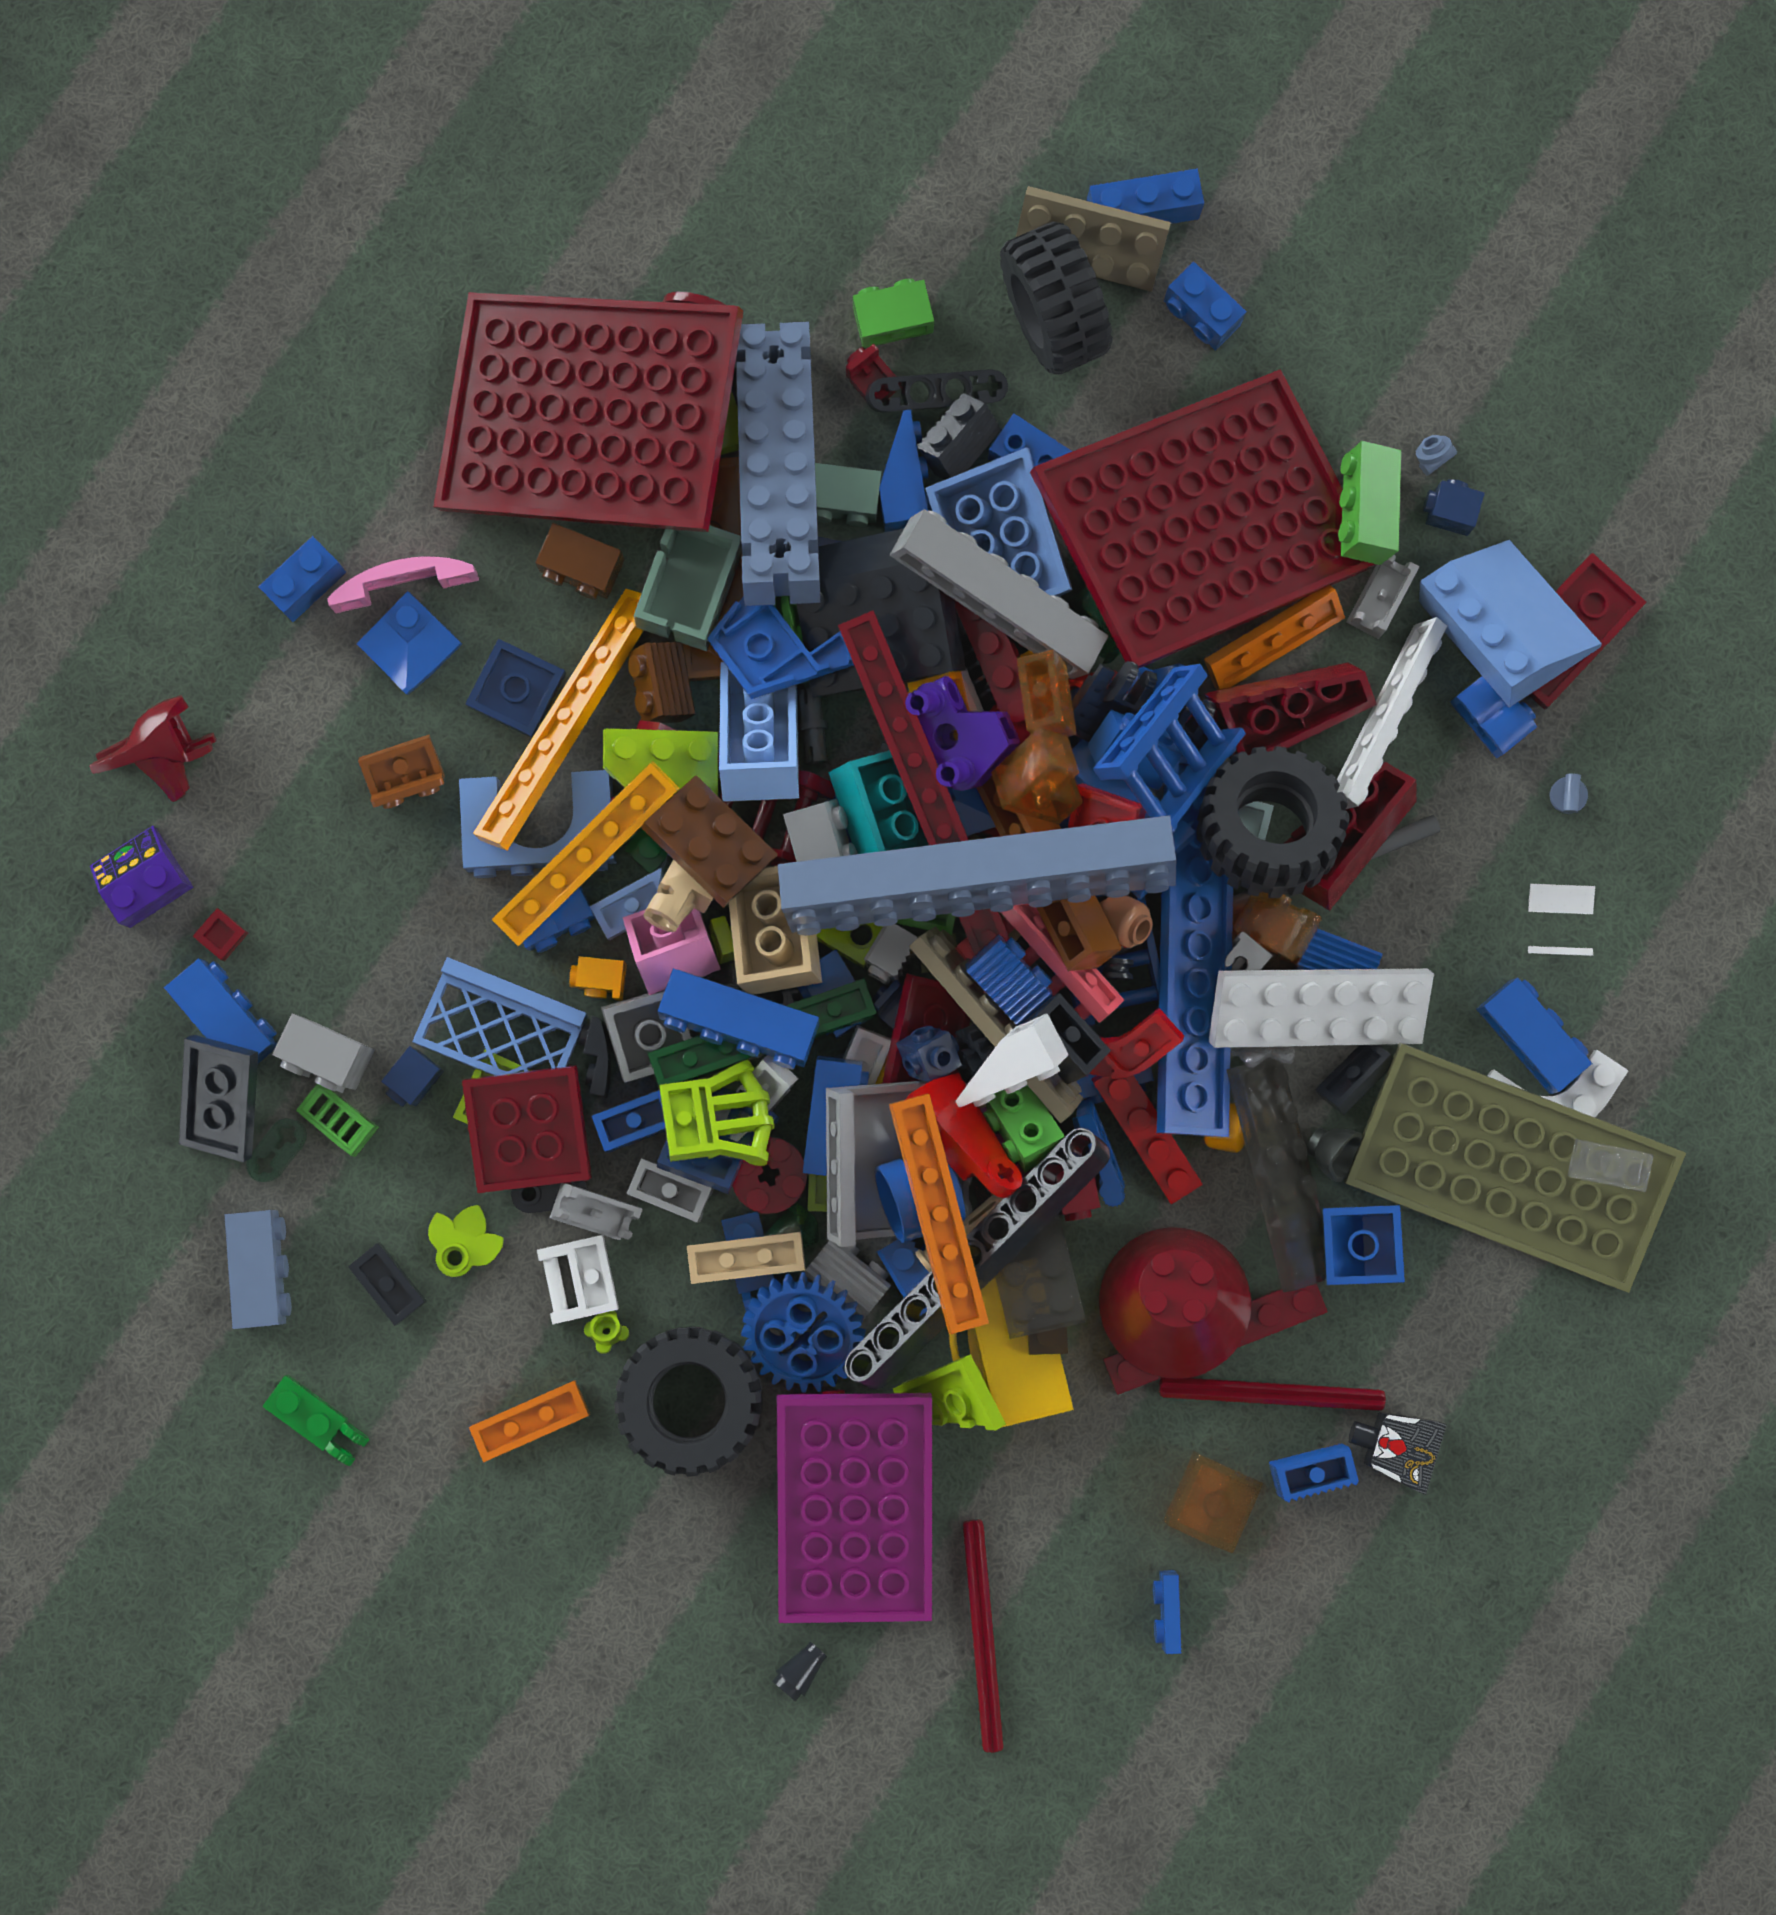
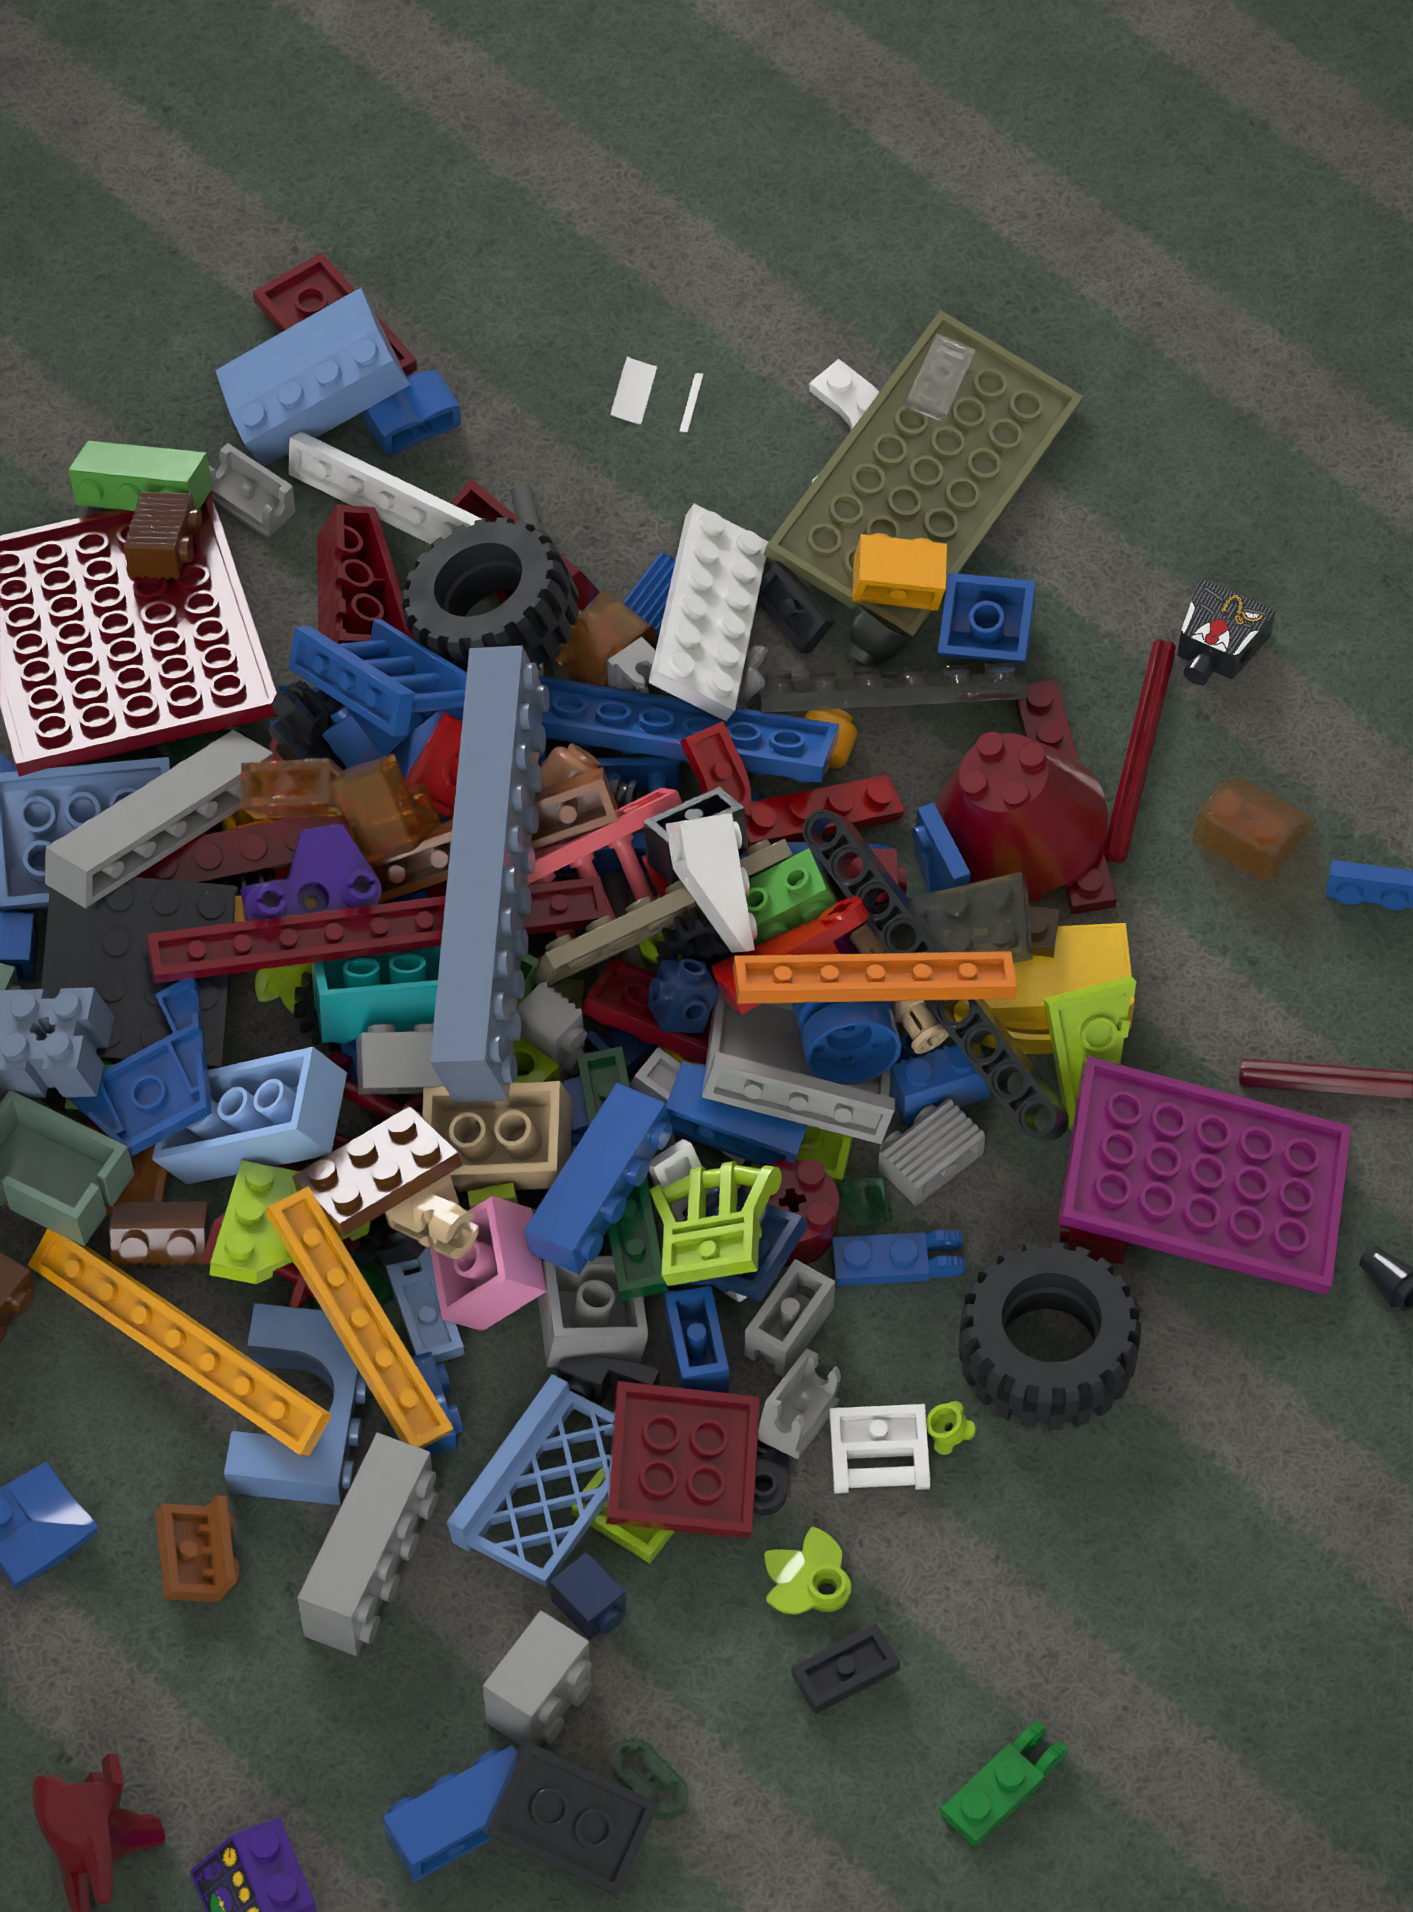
camera: 75 degrees left, 25 degrees down
(220, 934) = (354, 1802): dark red plate -> none
(257, 1269) = (798, 1818): sand blue brick -> none
(361, 1136) = (650, 1698): bright green slope -> none
(417, 900) = (368, 1545): none -> light grey brick
(515, 688) = (122, 1407): dark blue plate -> none
(529, 1421) = (1045, 1530): orange plate -> none
(598, 977) = (510, 1362): light orange brick -> none
(746, 1257) = (887, 1244): tan plate -> none
(778, 1310) = (957, 1217): blue gear -> none
(1010, 979) = (613, 879): blue brick -> none
(1097, 1250) = (937, 852): none -> blue plate
(1274, 638) = (265, 594): orange plate -> none
(1306, 533) = (161, 535): none -> reddish brown brick
(1313, 1472) = (1235, 715): blue brick -> none
(1398, 1162) = (899, 571): none -> light orange brick
(1434, 452) = (96, 421): sand blue plate -> none
(1453, 507) = (166, 409): dark blue brick -> none
(1535, 1035) = (781, 434): blue brick -> none
(1569, 794) = (518, 361): sand blue plate -> none

